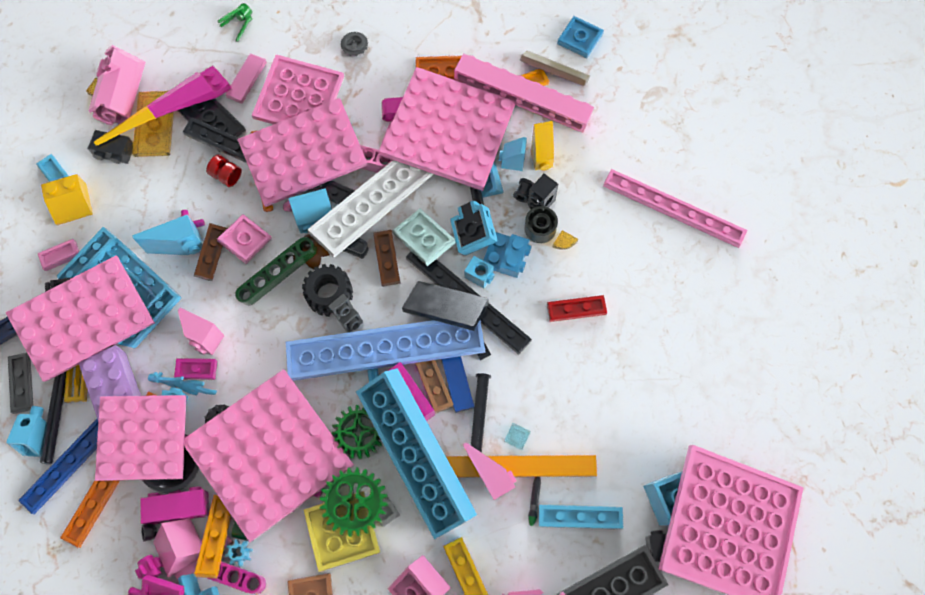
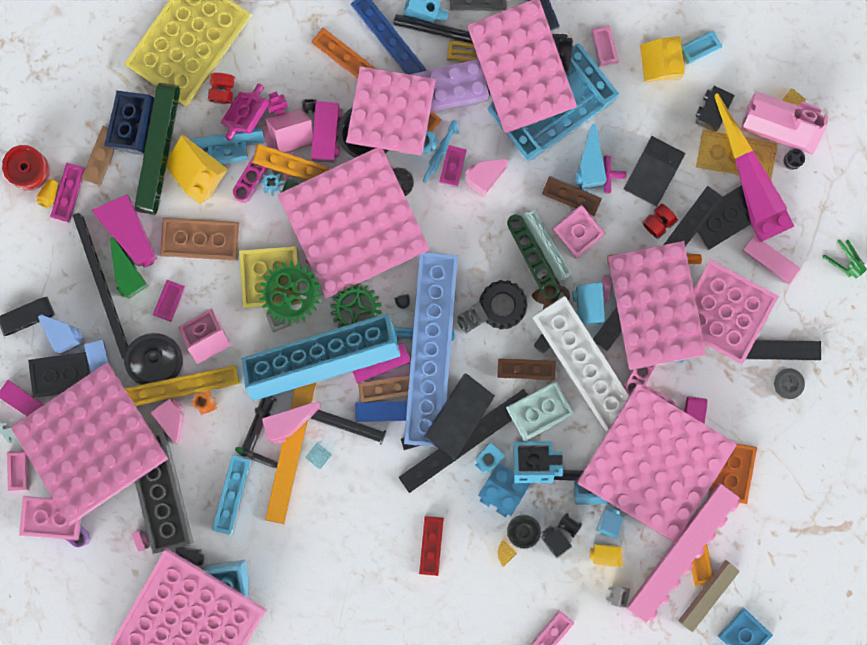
camera: 100 degrees right, 15 degrees up
(151, 71) = (797, 156): none -> black wheel
(175, 185) = (654, 171): none -> black slope
(261, 263) = (546, 245): none -> light aqua tile
(324, 47) = (785, 350): none -> black tile
(342, 387) = (402, 301): none -> black hinge
(488, 505) = (262, 411): none -> black pin
(491, 565) = (204, 402): none -> orange piece
(576, 136) = (620, 596): none -> light grey tile

